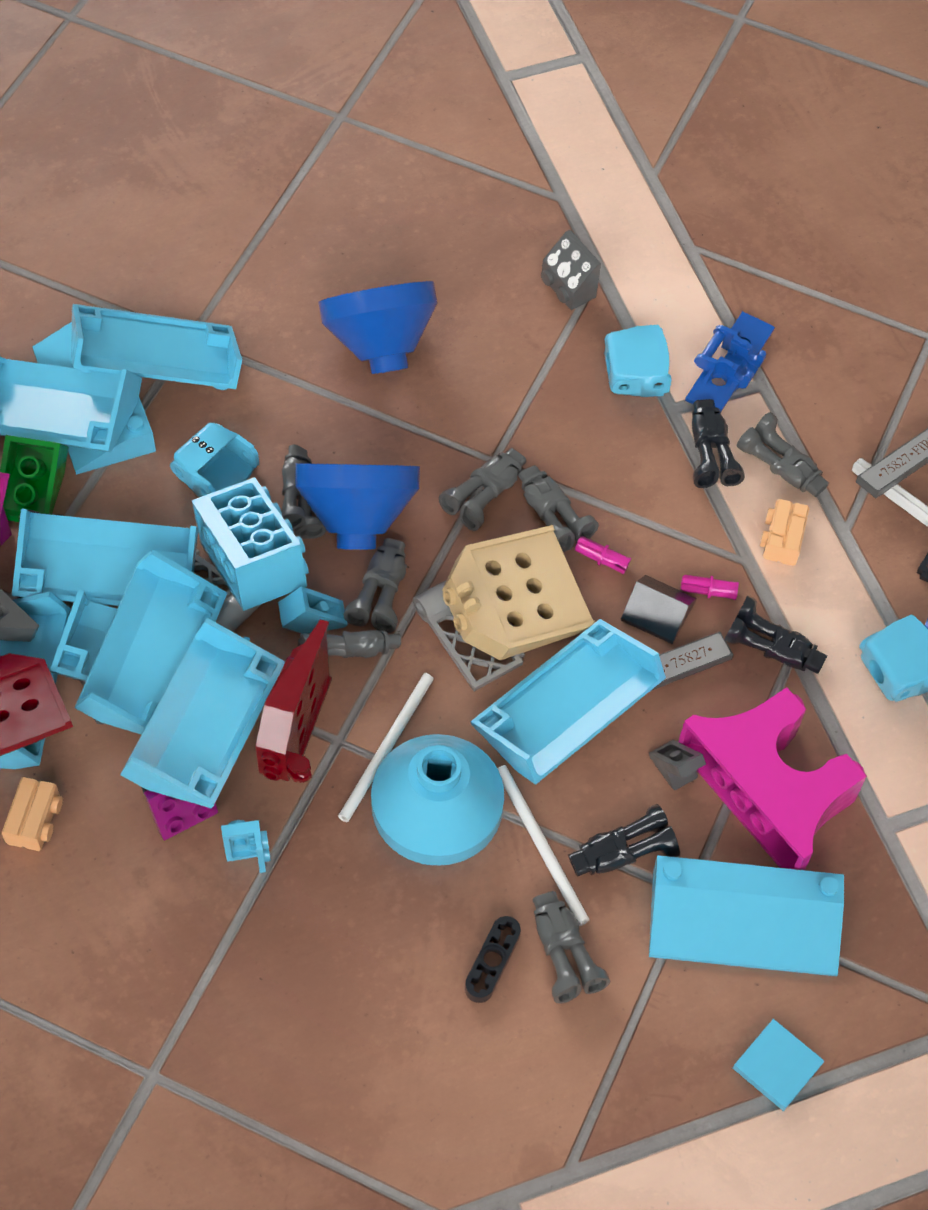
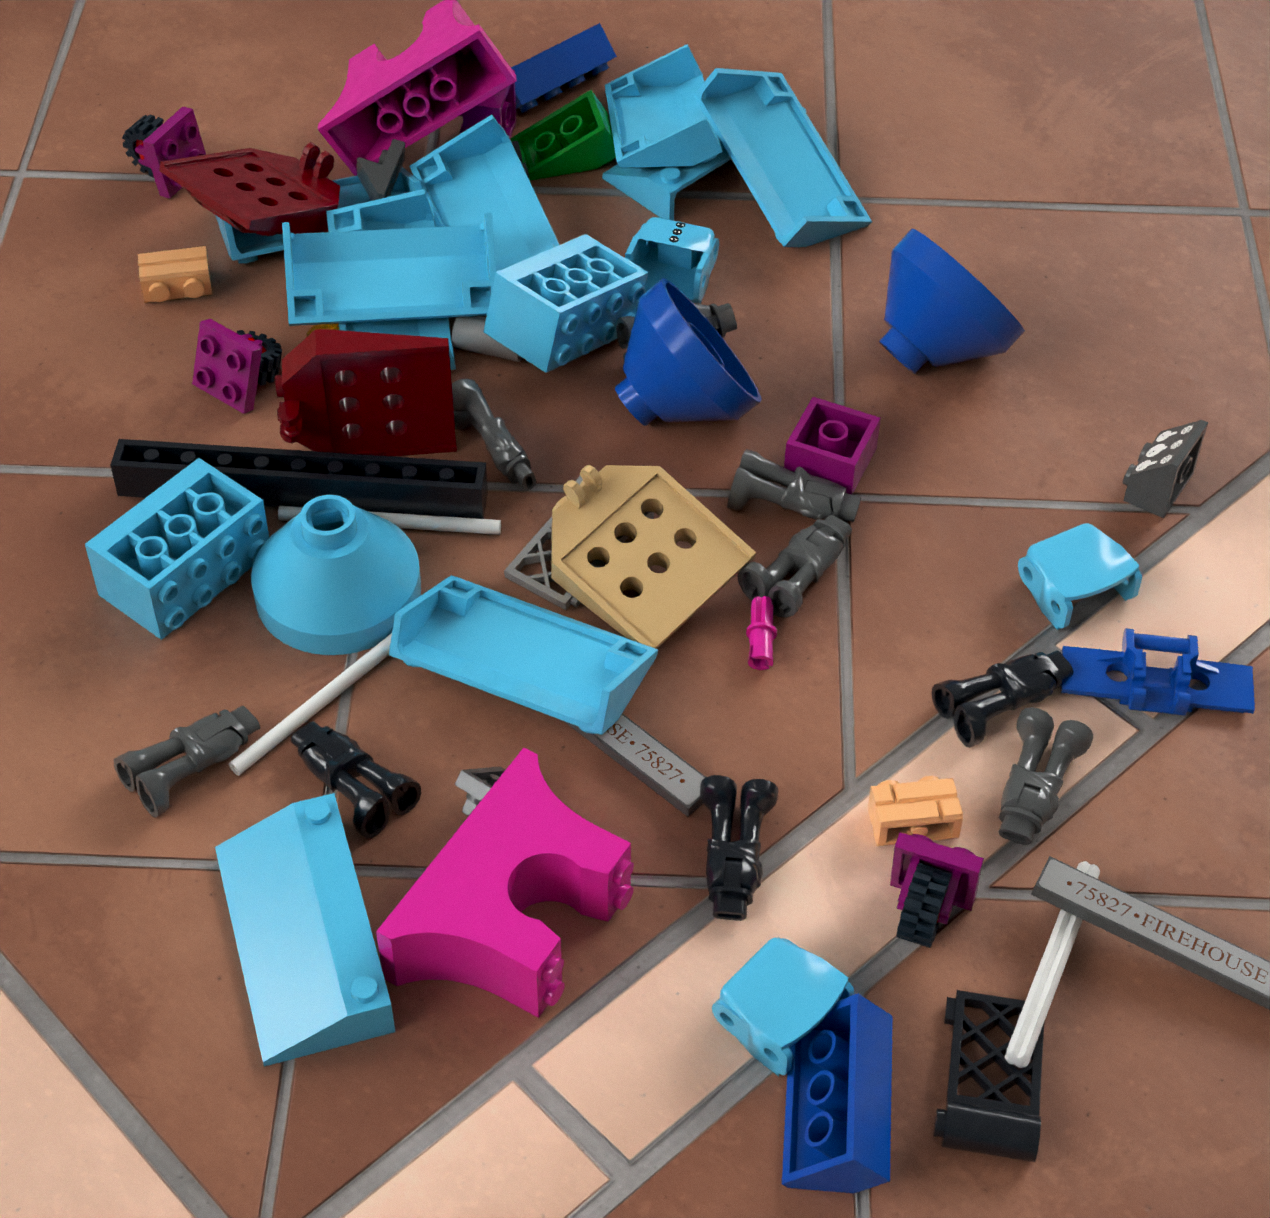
camera: 70 degrees right, 10 degrees down
(204, 717) = (265, 323): medium azure slope -> none
(246, 841) = (198, 423): medium azure bracket -> none
(305, 608) = (526, 399): medium azure slope -> none
(327, 793) = (298, 476): none -> black brick
(371, 891) = (178, 548): none -> medium azure brick
(385, 571) = (610, 442): dark grey piece -> none
(461, 442) = (833, 443): none -> magenta brick
(491, 982) = (163, 707): black beam -> none
(657, 608) = (720, 711): slope -> none
(709, 586) = (780, 757): dark pink axle -> none
(778, 1064) = (108, 1028): medium azure tile -> none
(857, 548) = (930, 884): none -> plate

